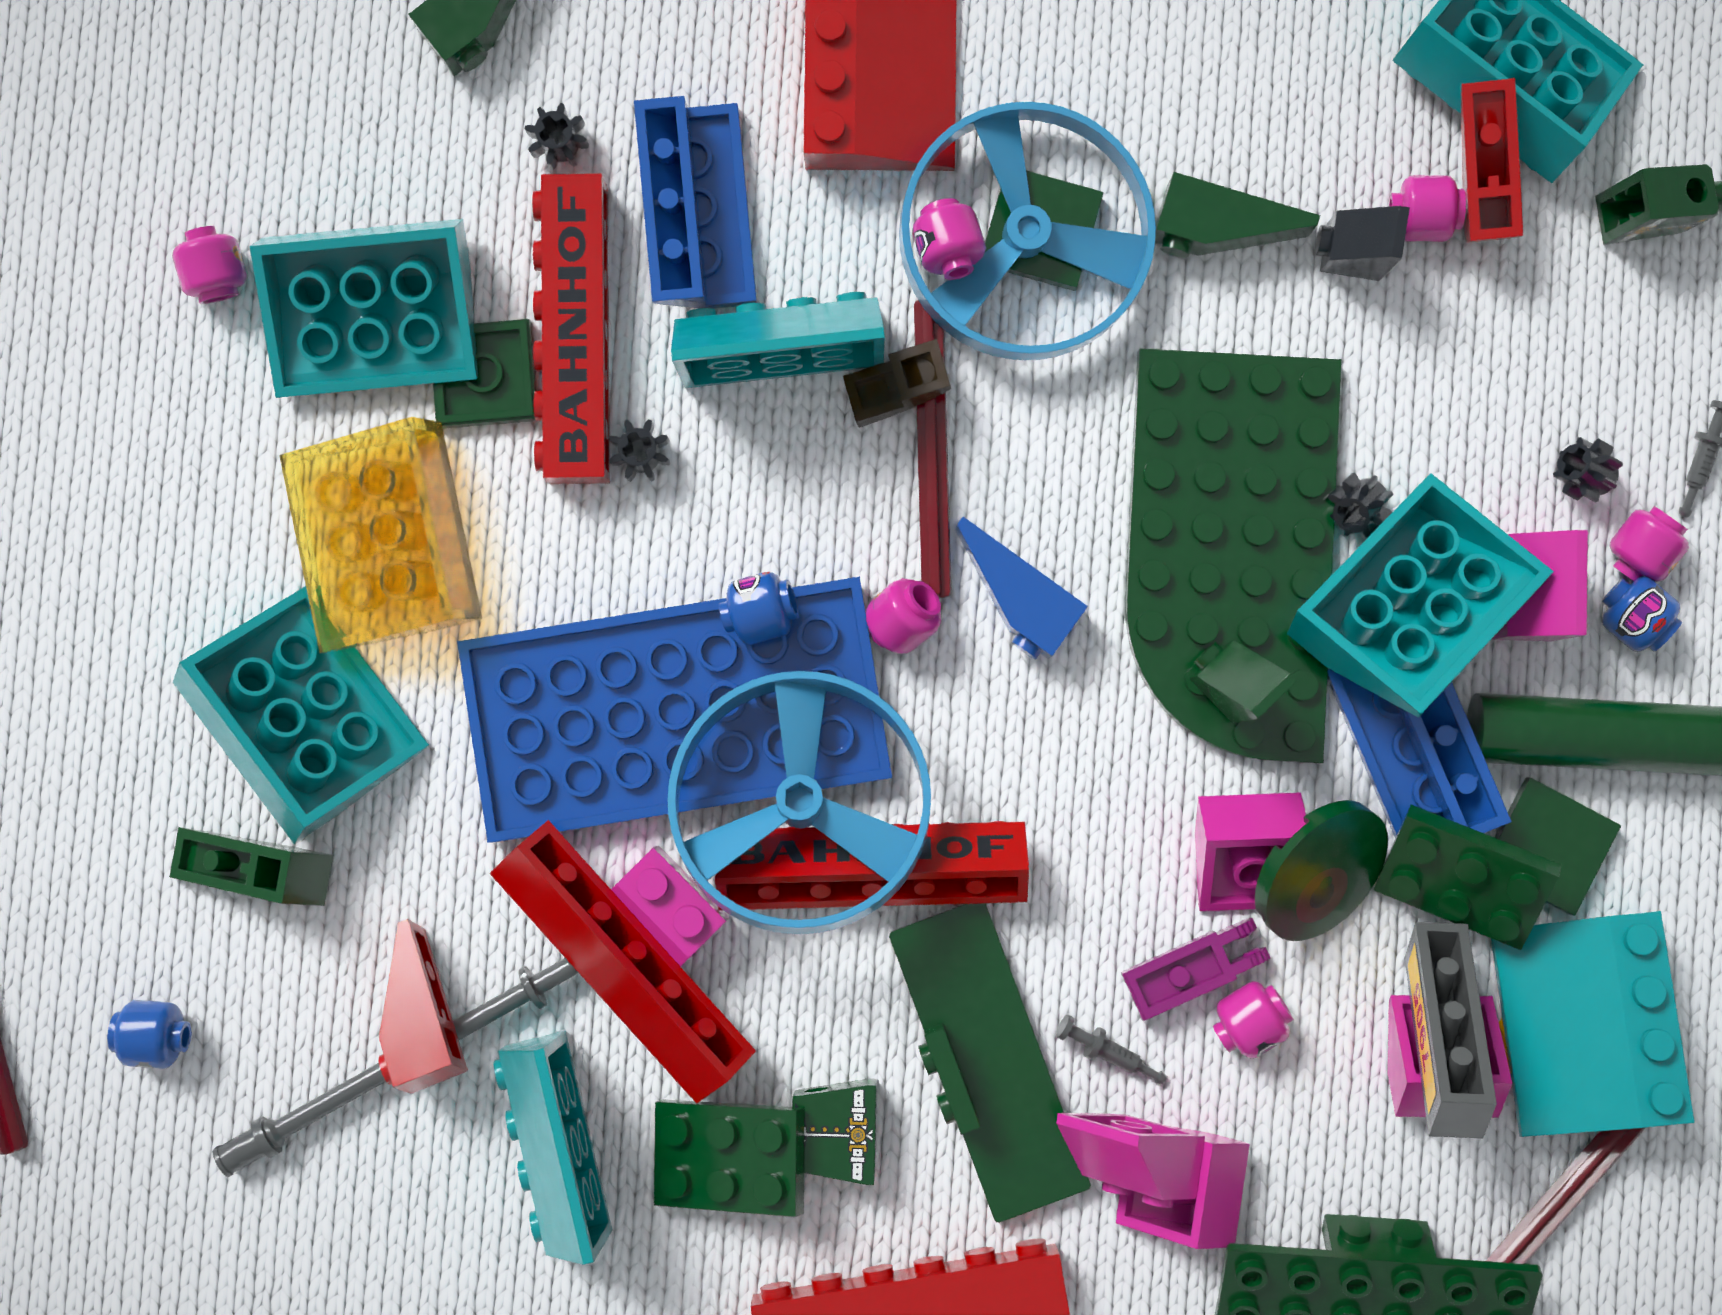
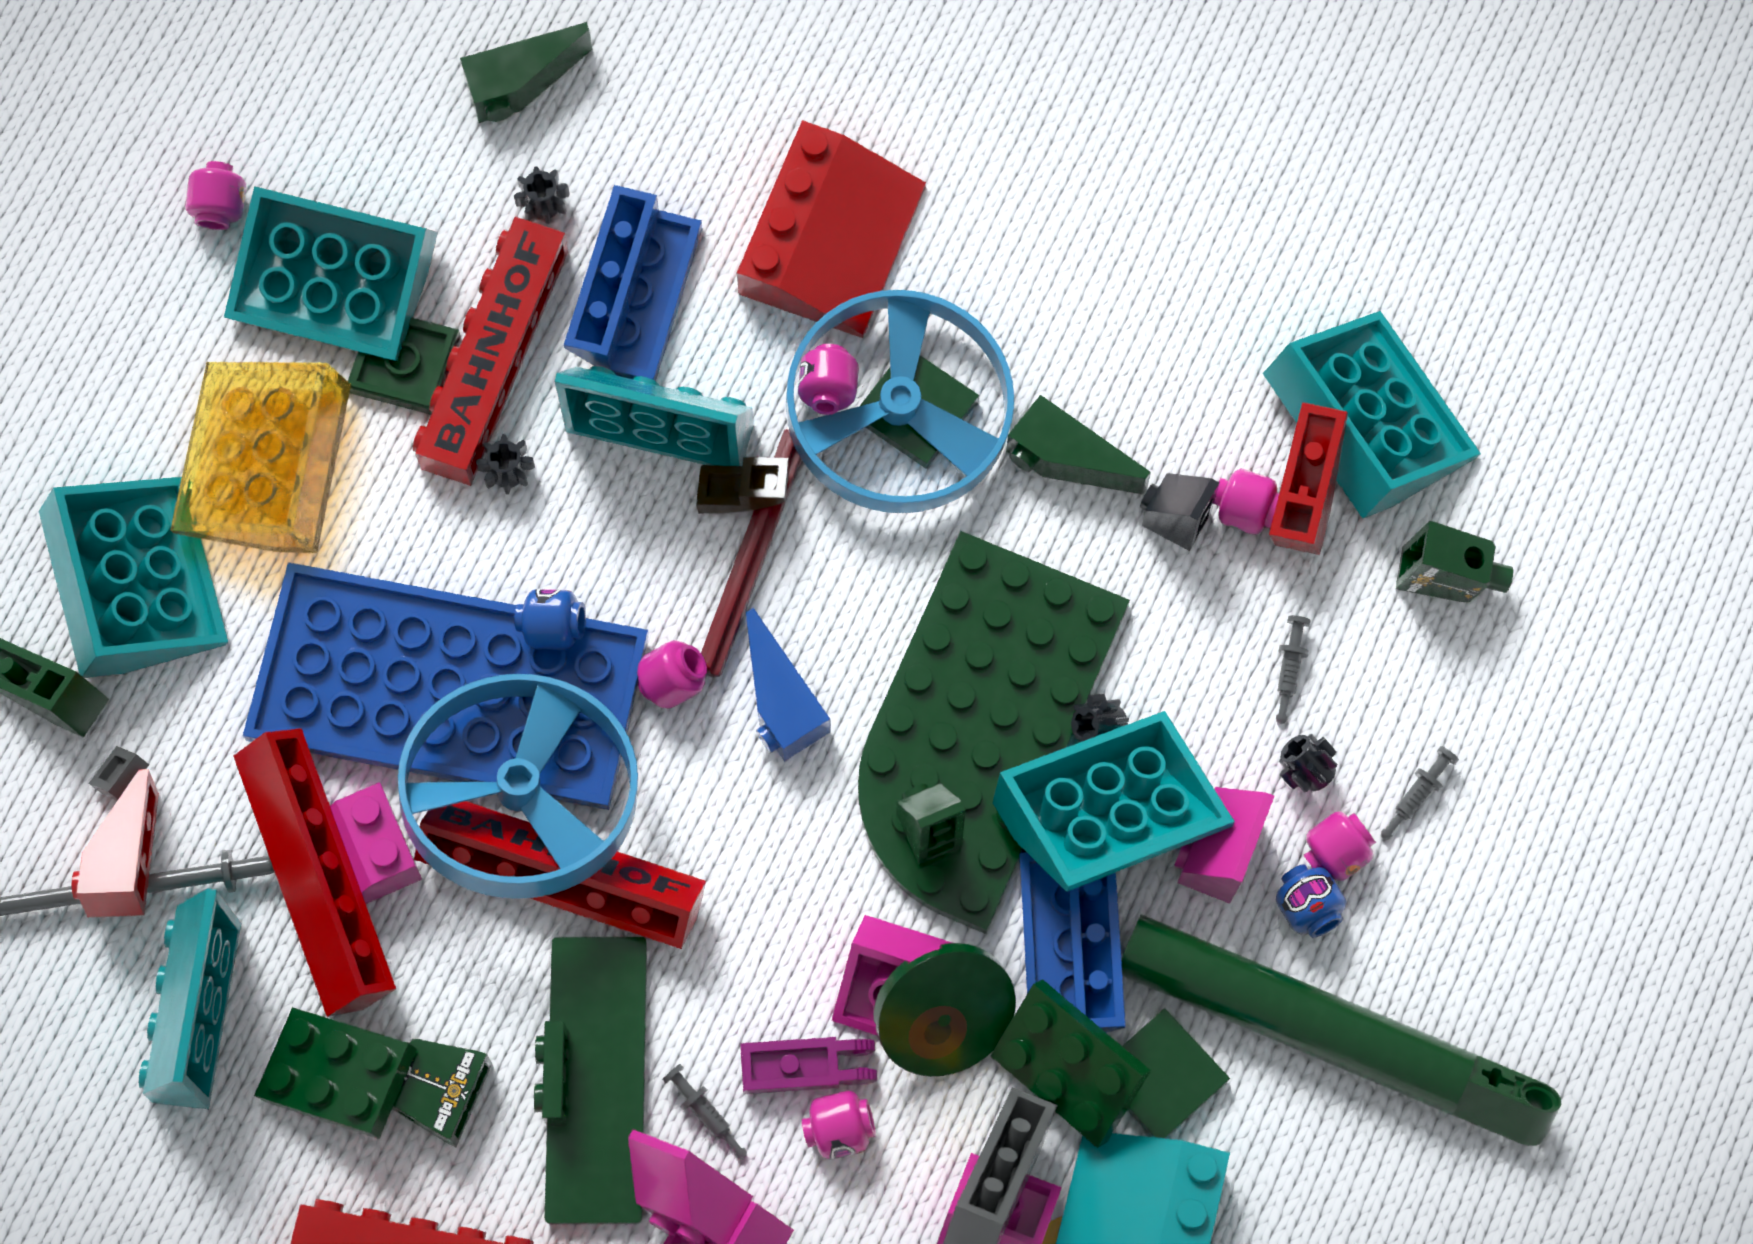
camera: 15 degrees right, 15 degrees down
(376, 929) = (117, 772): none -> dark grey plate
(1529, 368) = (1291, 664): none -> dark grey piece

